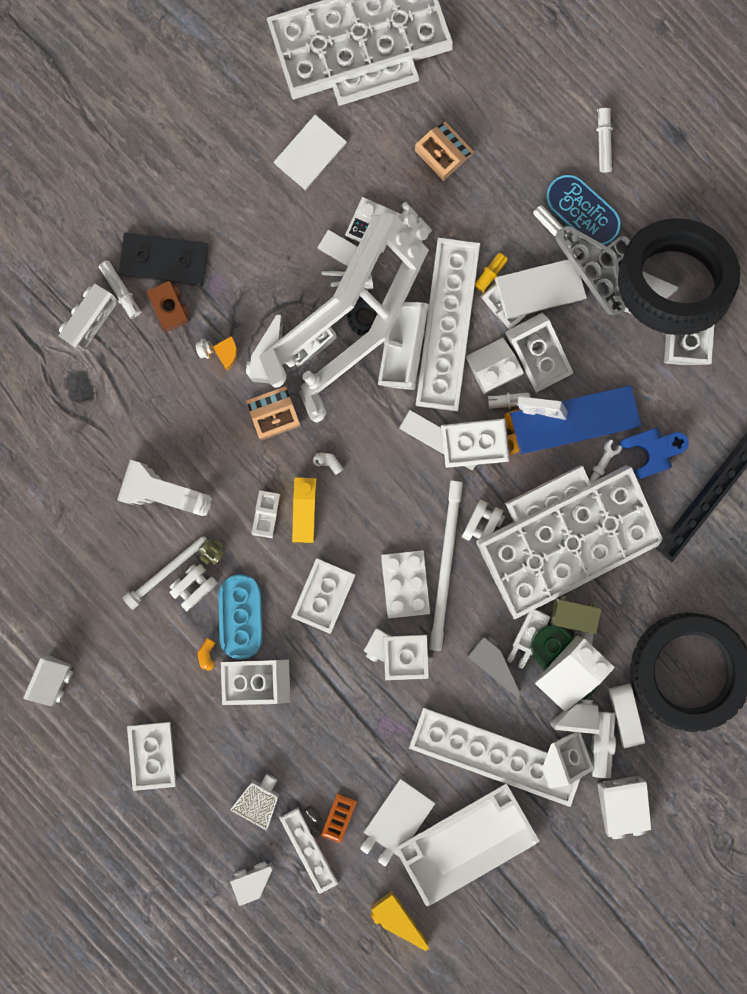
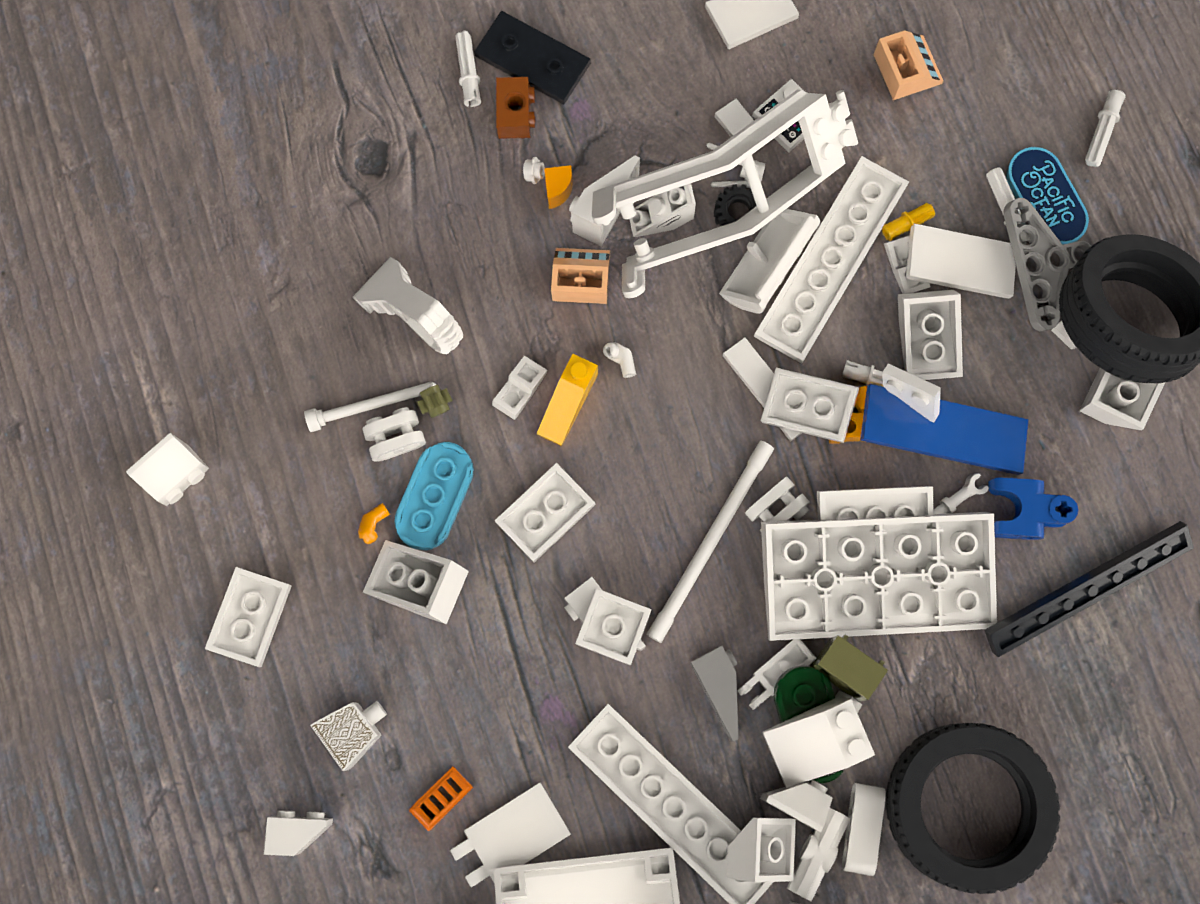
camera: 30 degrees right, 10 degrees down
(88, 317) = (418, 83): white slope -> none
(308, 850) = (385, 824): white tile -> none
(316, 821) = (411, 790): clear smoke arm -> none
(405, 584) = (651, 542): white plate -> none
(494, 365) = (869, 329): white slope -> none

